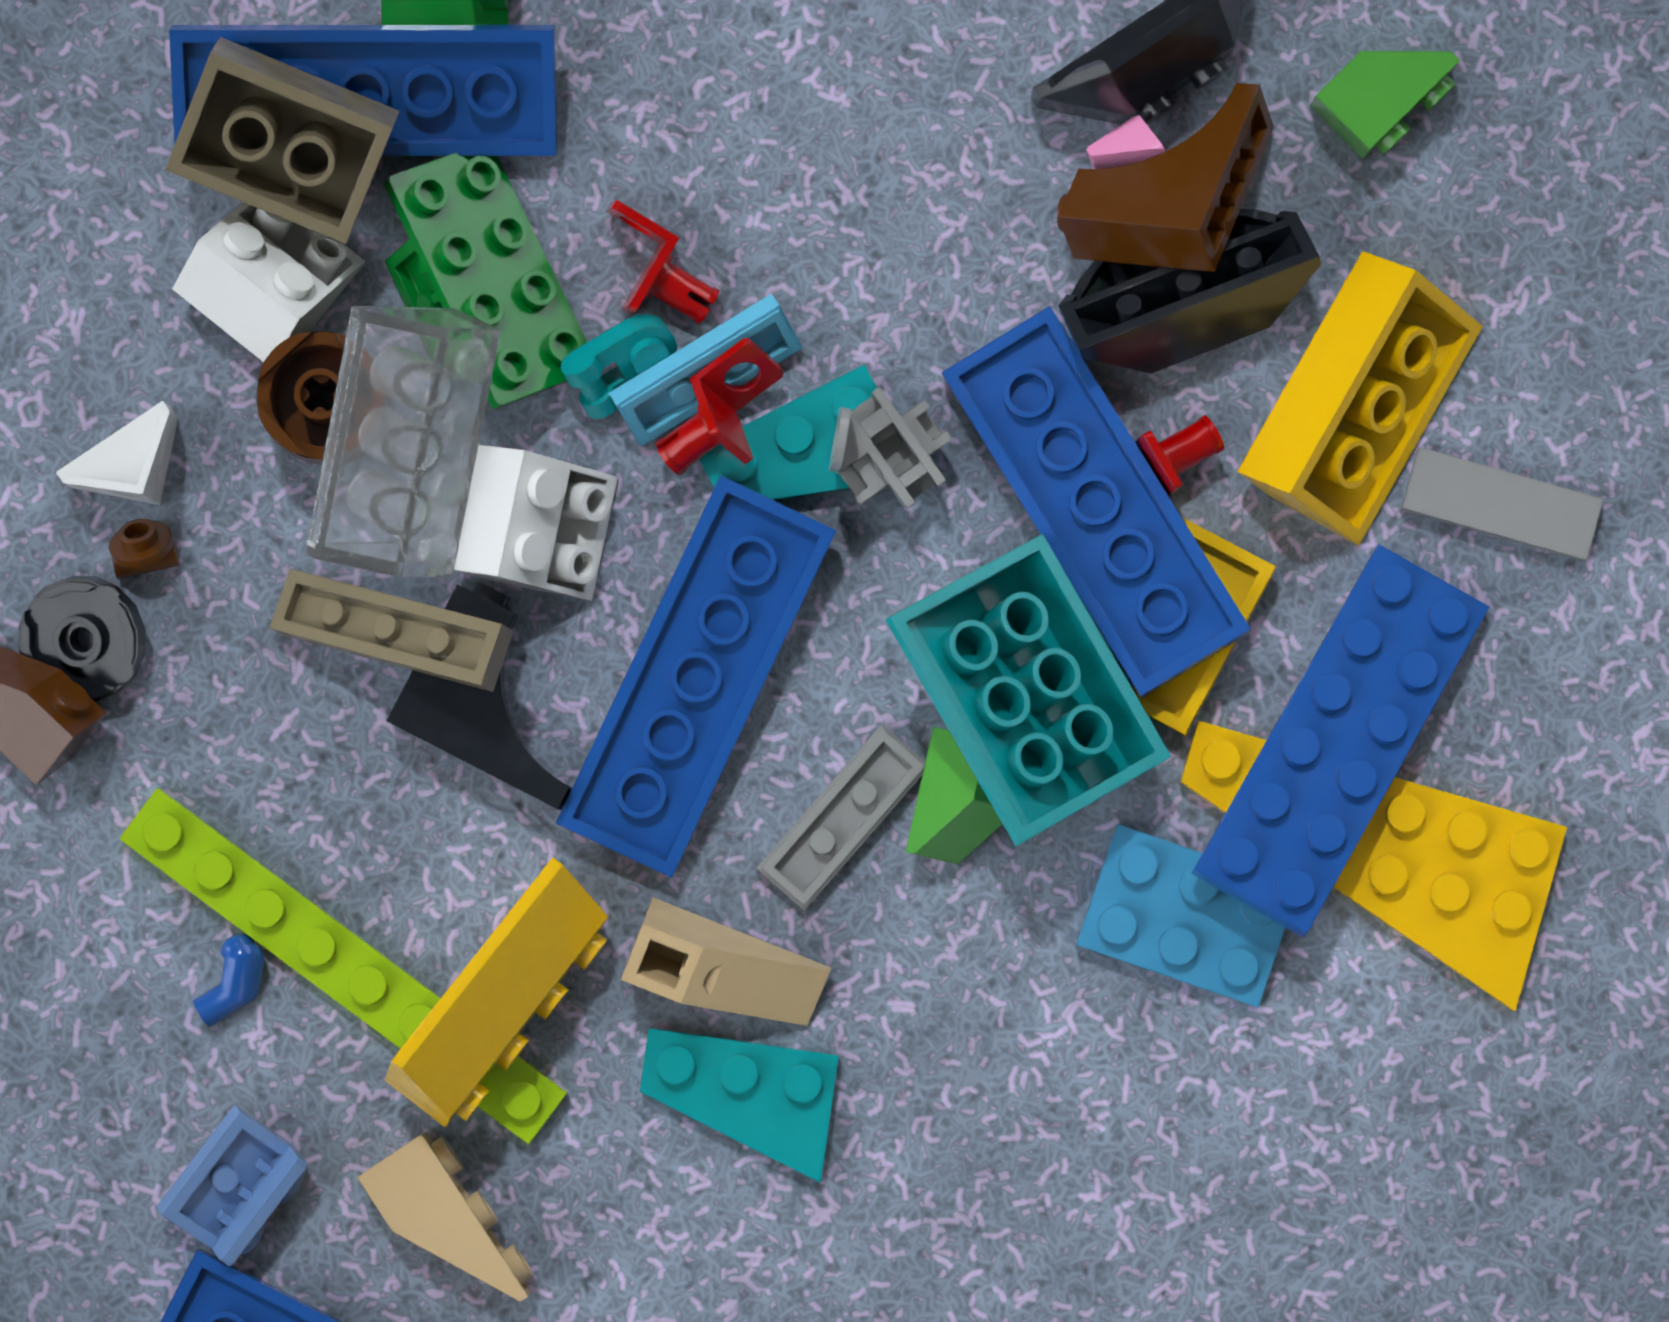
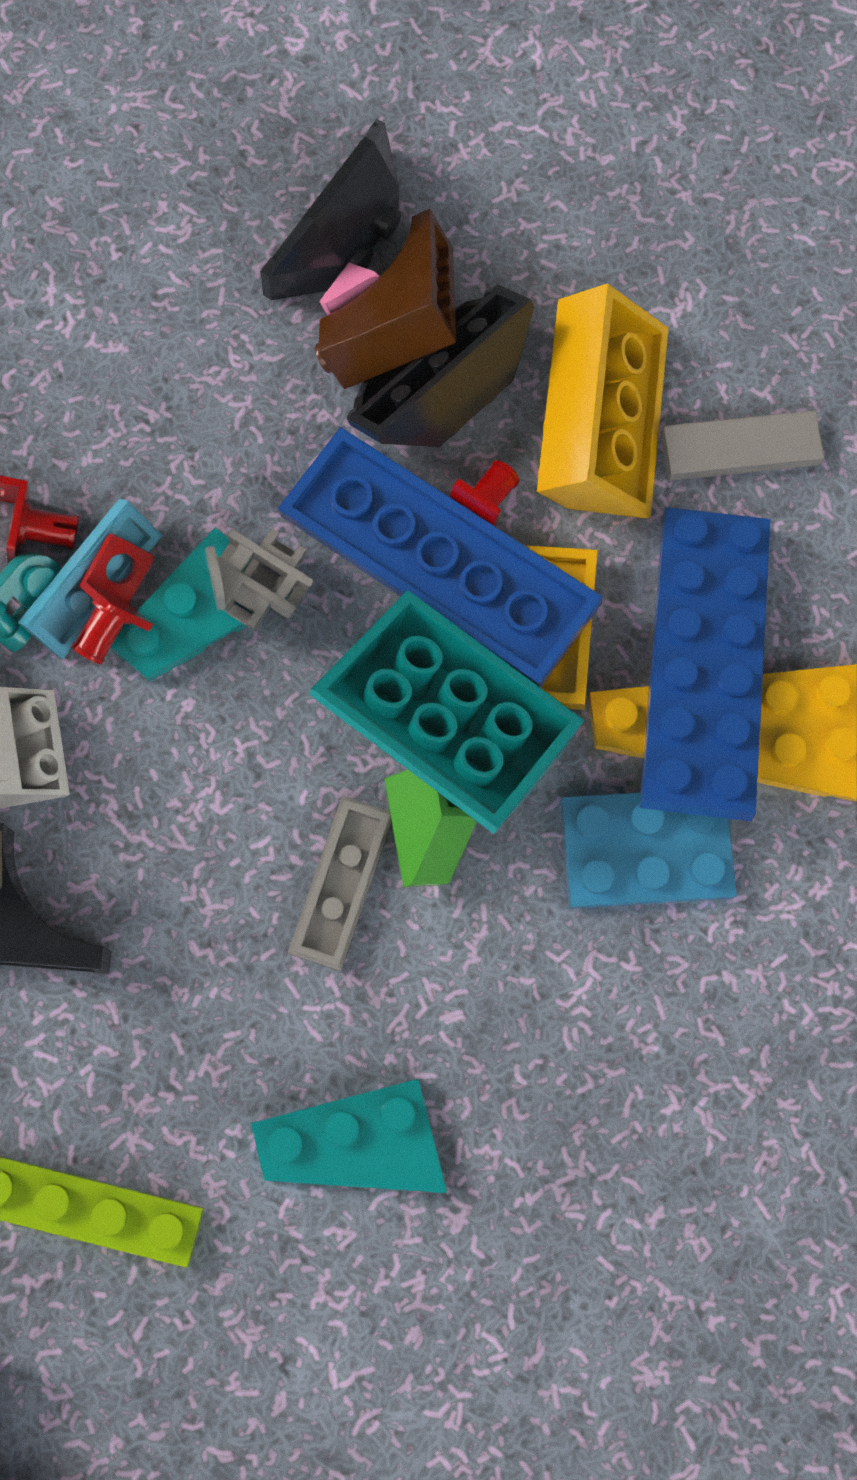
camera: 30 degrees left, 10 degrees down
(431, 1208) = (124, 1363): tan slope -> none
(498, 995) = (105, 1150): yellow slope -> none
(695, 676) = (175, 819): blue plate -> none
(721, 967) = (290, 1046): tan slope -> none
(1378, 91) = (518, 190): bright green slope -> none

